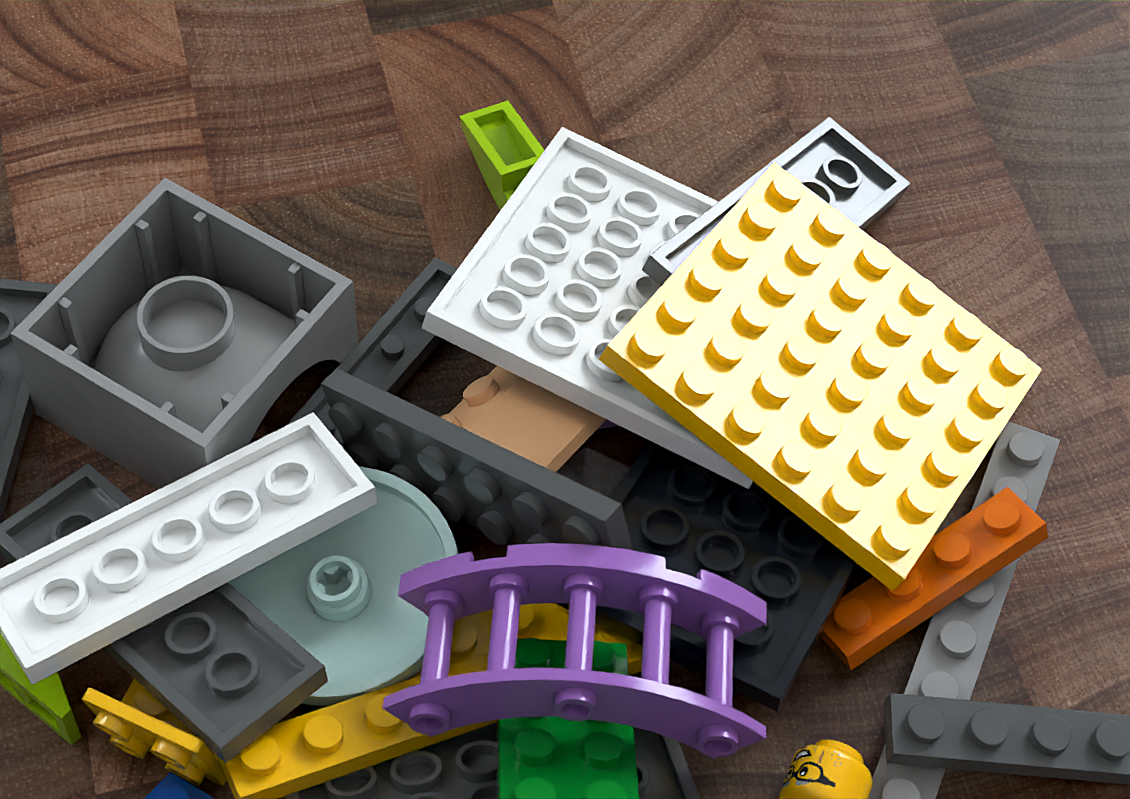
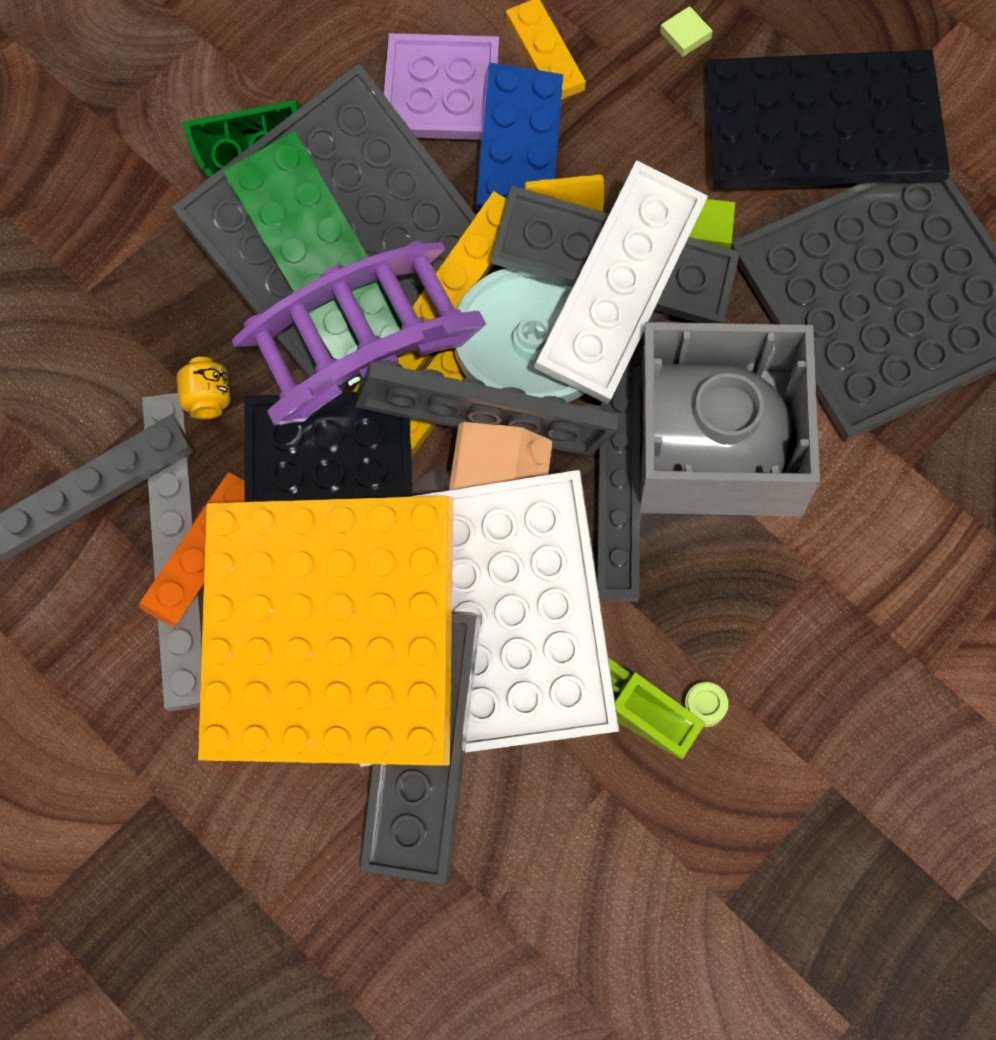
camera: 155 degrees right, 15 degrees up
(440, 148) = (707, 702): none -> yellowish green tile

